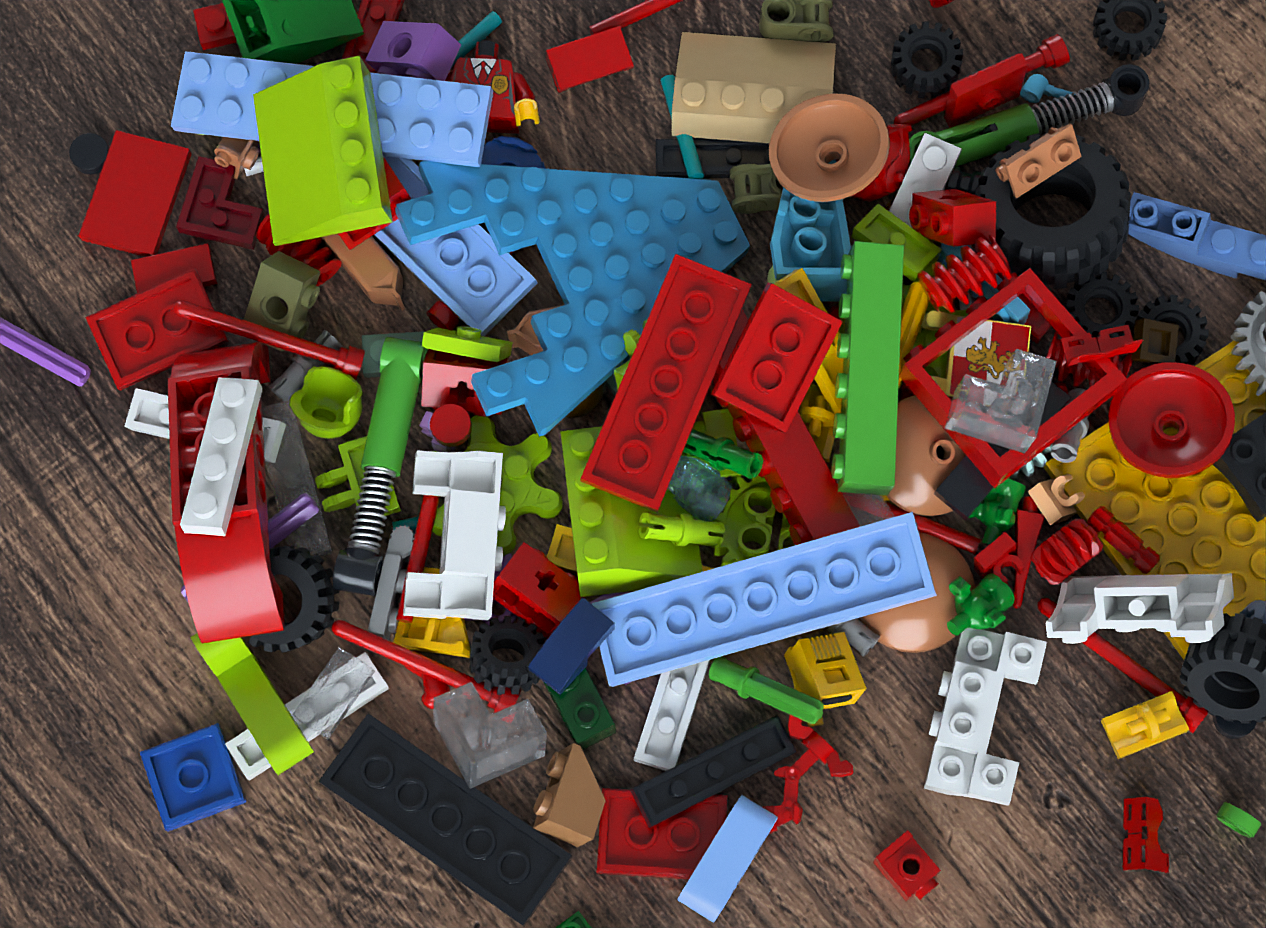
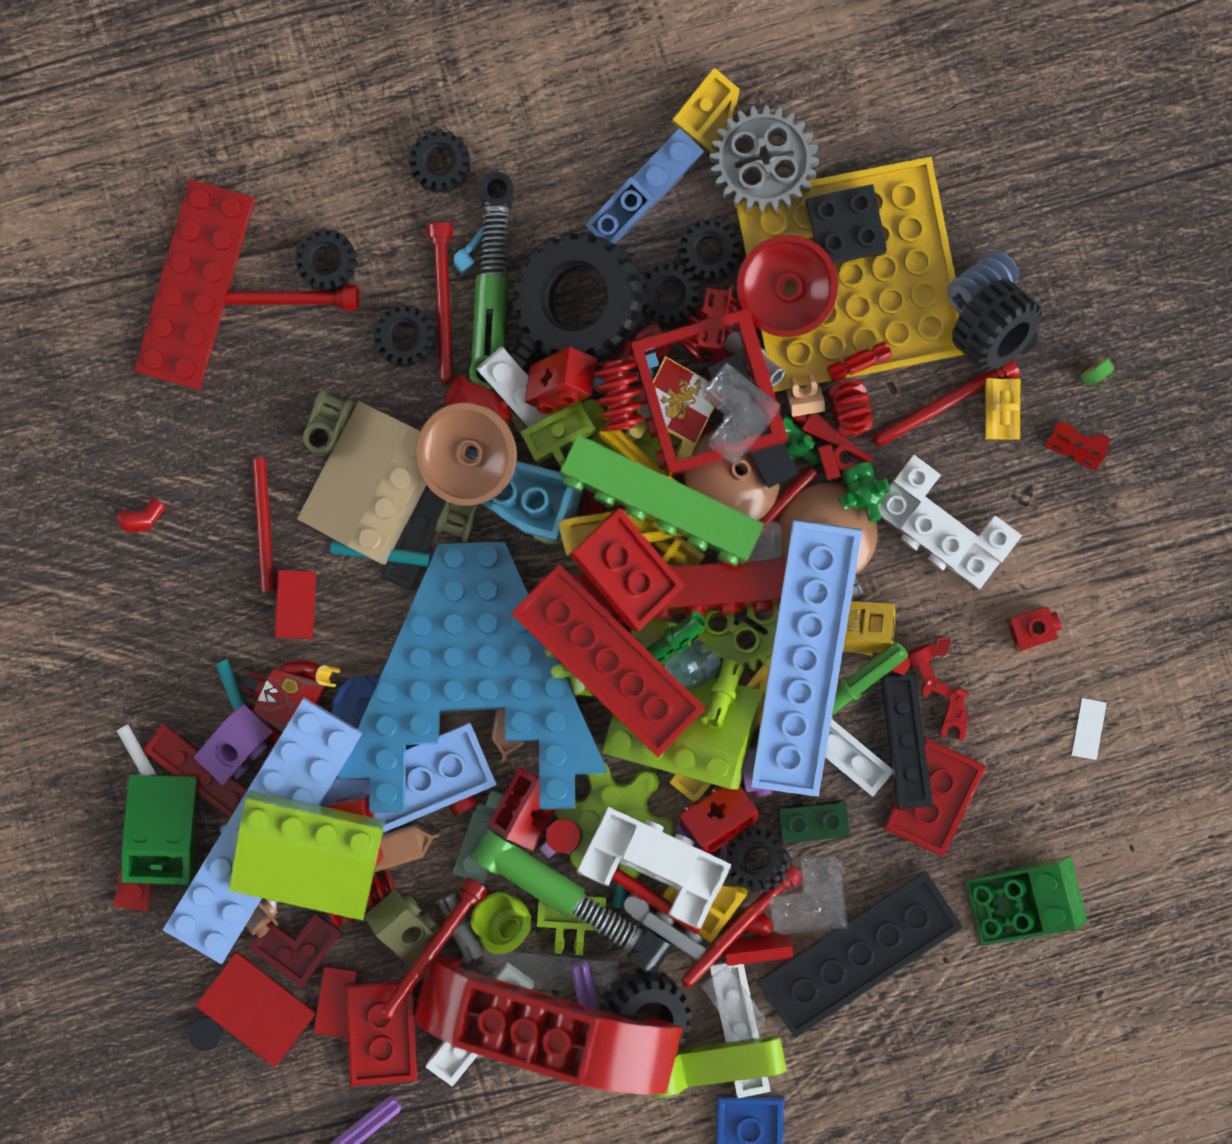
camera: 70 degrees left, 15 degrees up
(221, 456) = (541, 1029): white plate -> none
(406, 699) = (759, 949): none -> red tile
(467, 342) = (503, 797): lime plate -> none
(570, 646) = (779, 813): dark blue slope -> none
(572, 798) = (885, 855): medium nougat slope -> none
(727, 858) = (977, 758): light blue beam -> none
(985, 90) = (457, 303): red plate -> none
(1041, 161) = (542, 280): nougat hinge -> none
(1158, 342) = (719, 268): dark brown plate -> none
(1174, 603) = (916, 372): white bracket -> none

